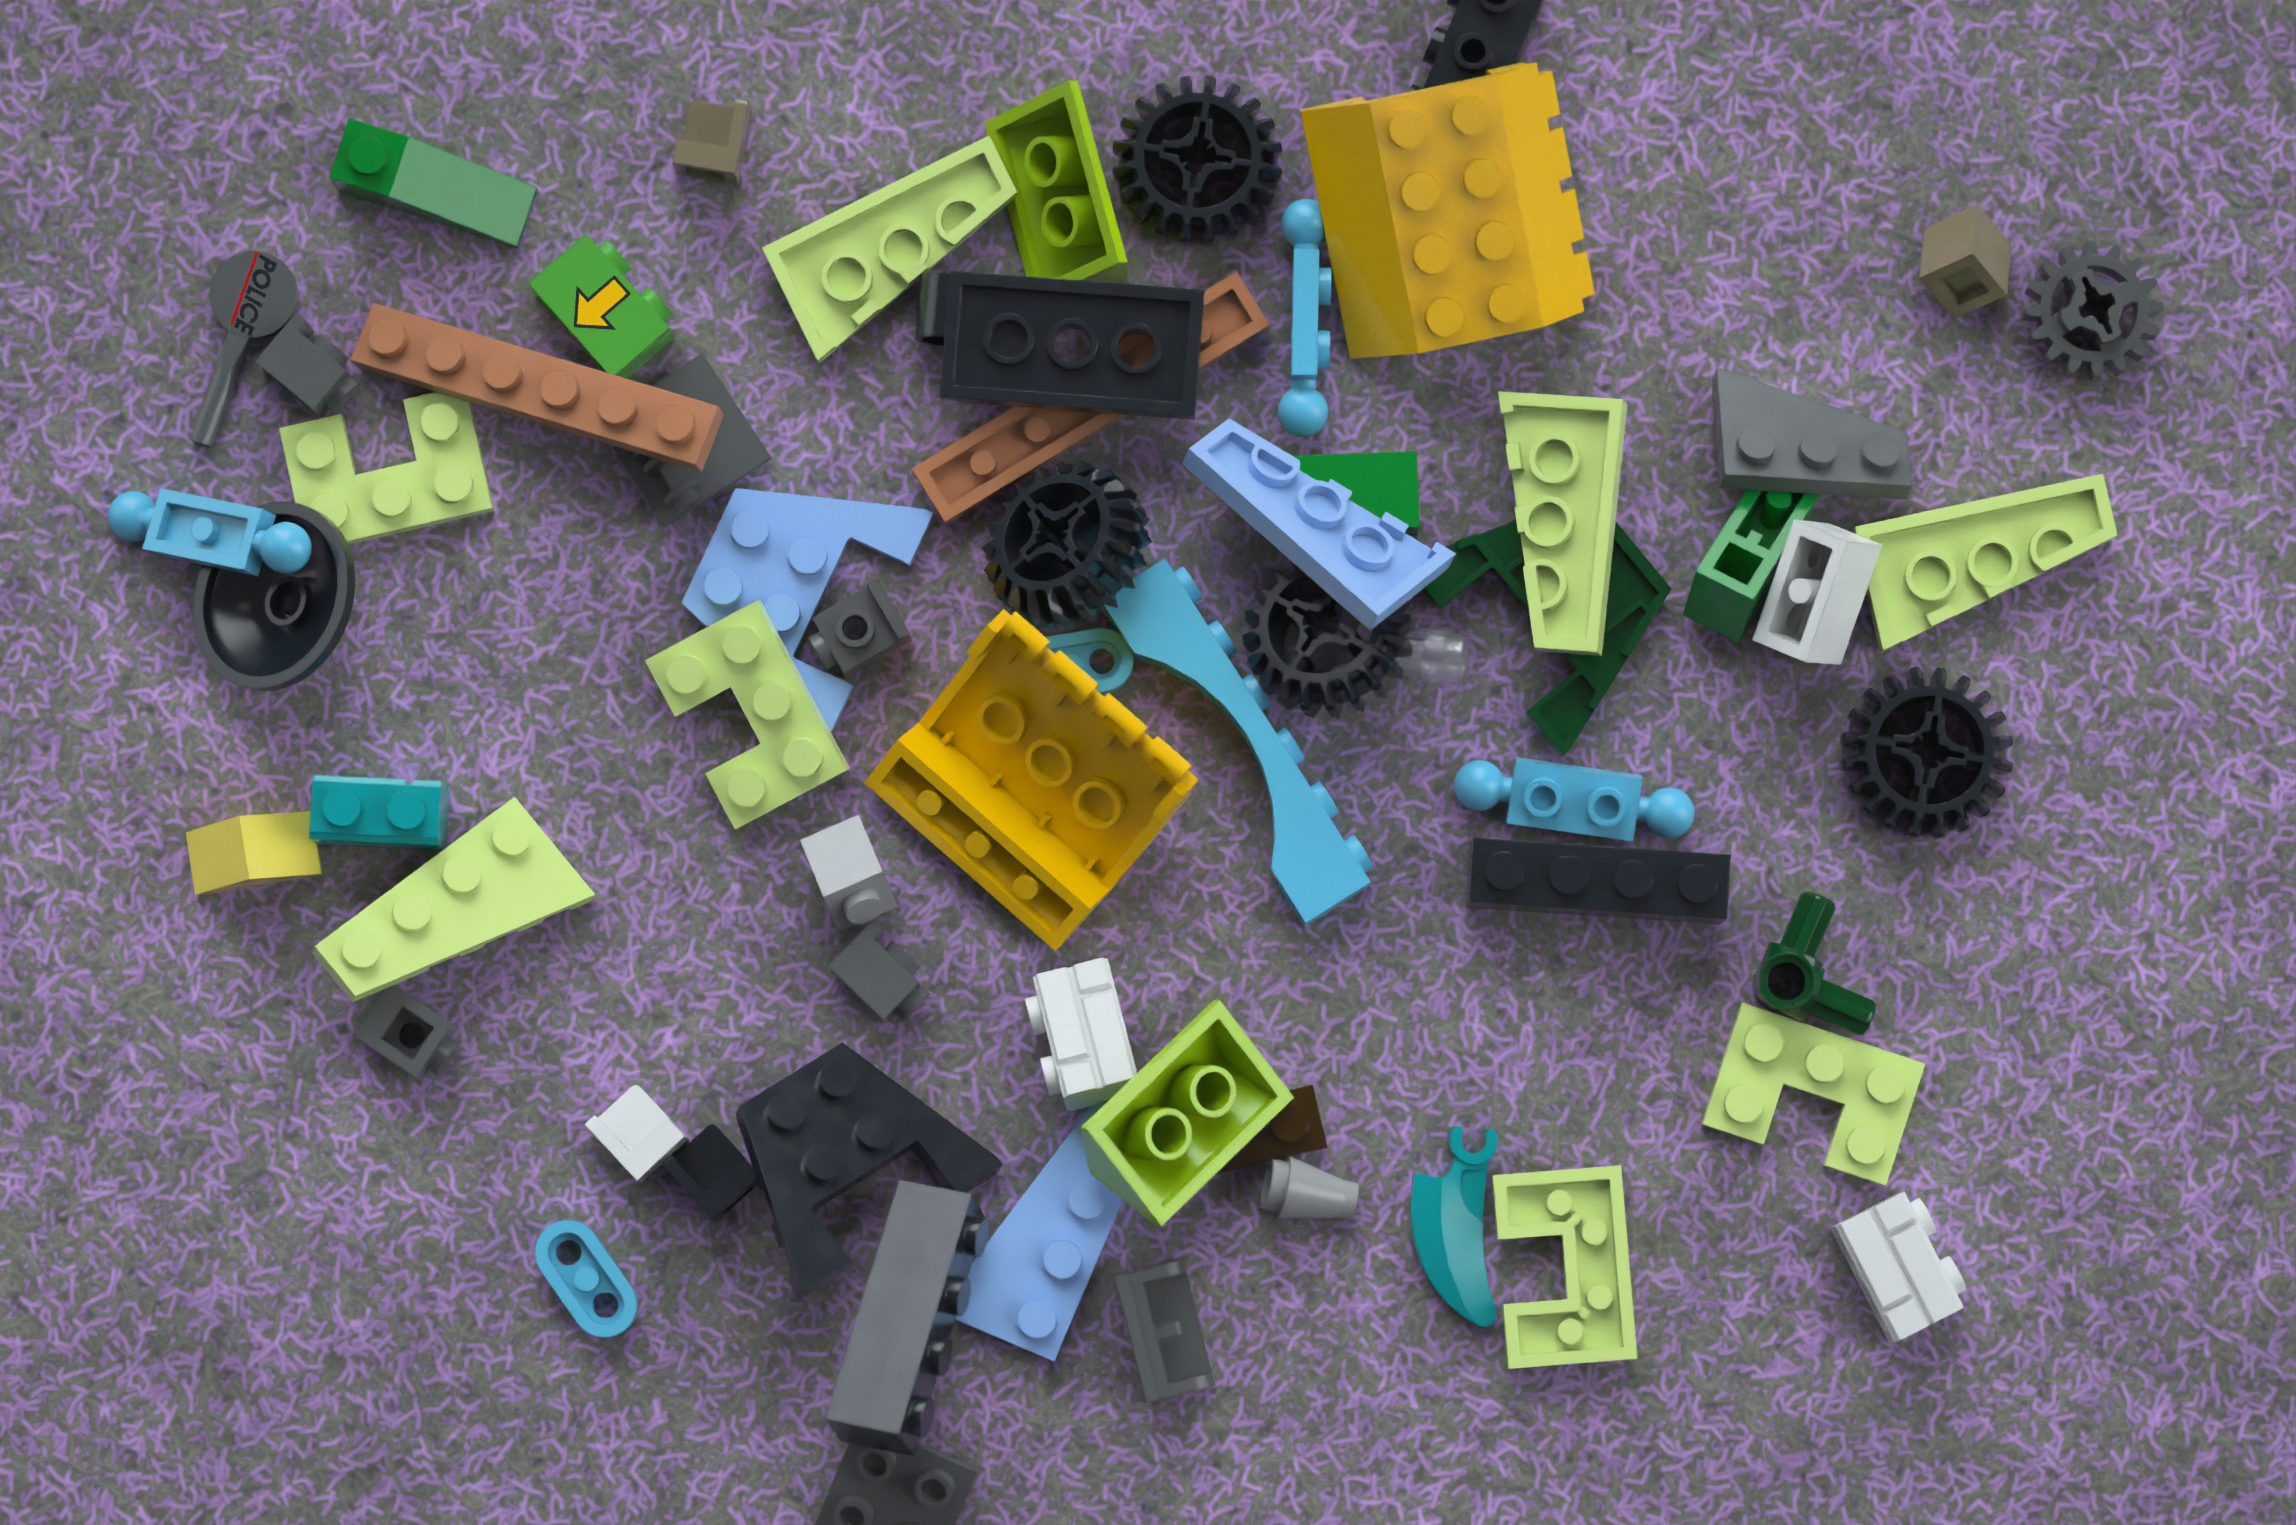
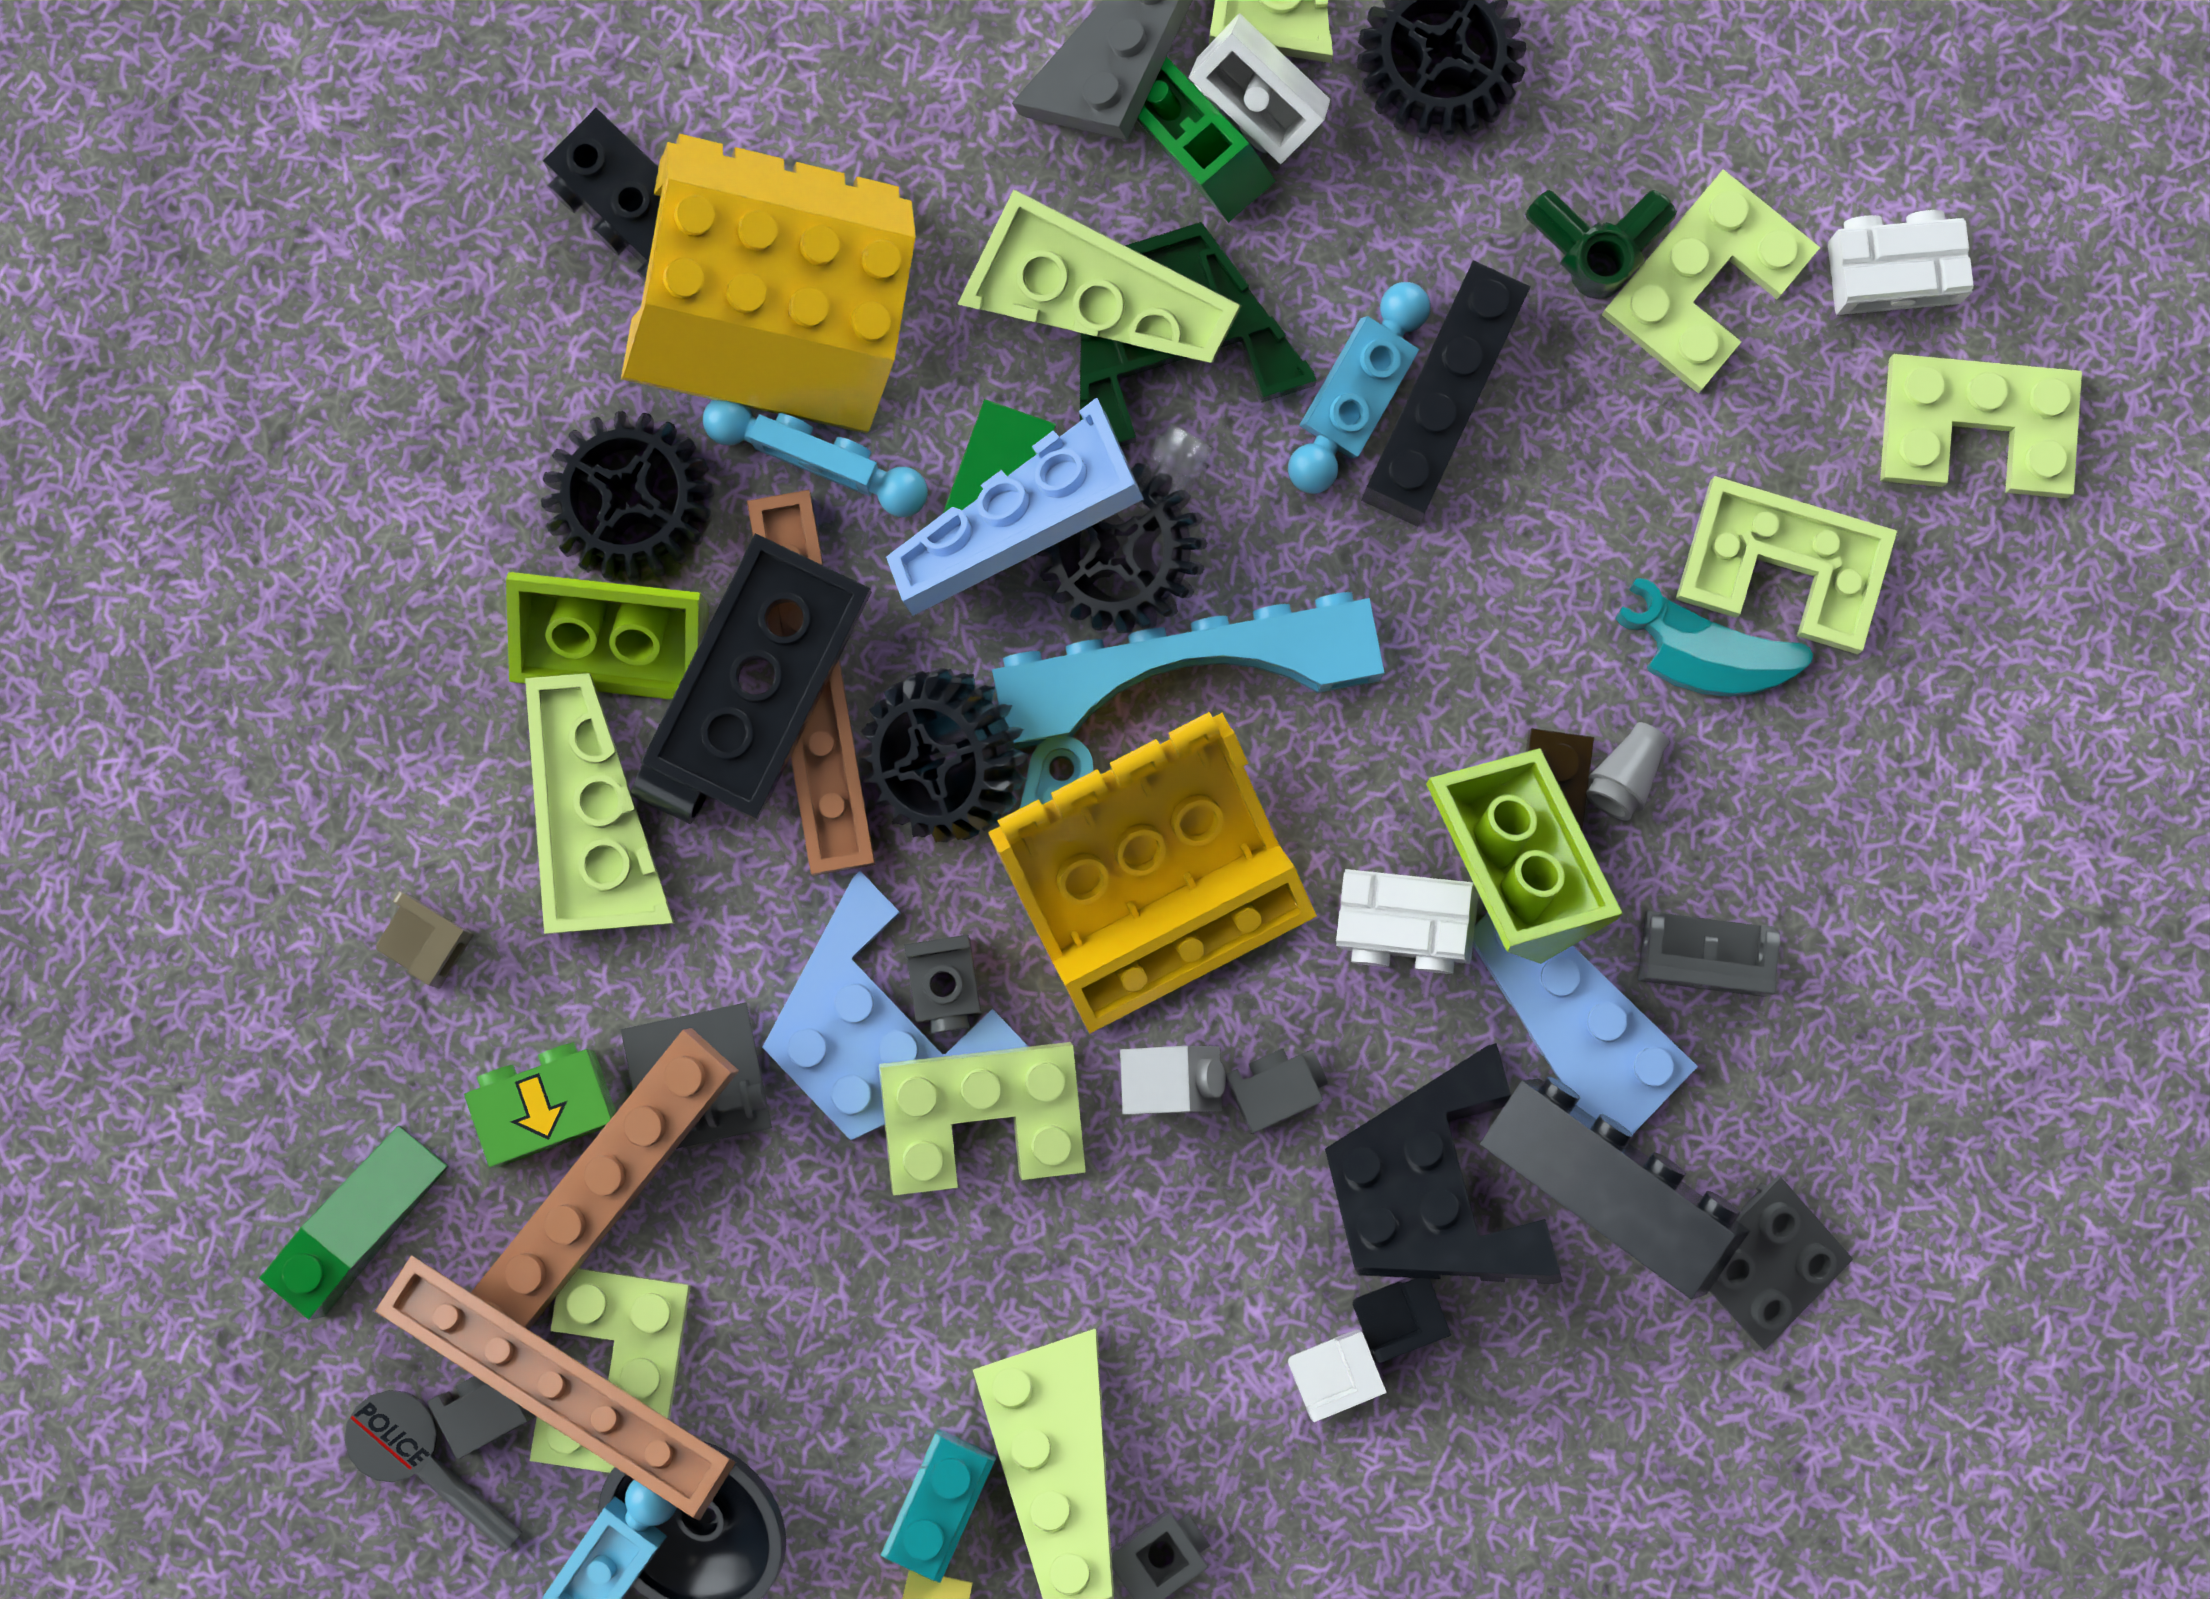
camera: 70 degrees left, 0 degrees up
(352, 421) = (556, 1387): none -> nougat plate
(587, 1279) = (1455, 1478): medium azure plate -> none
(1817, 1441) = (2028, 401): none -> yellowish green plate

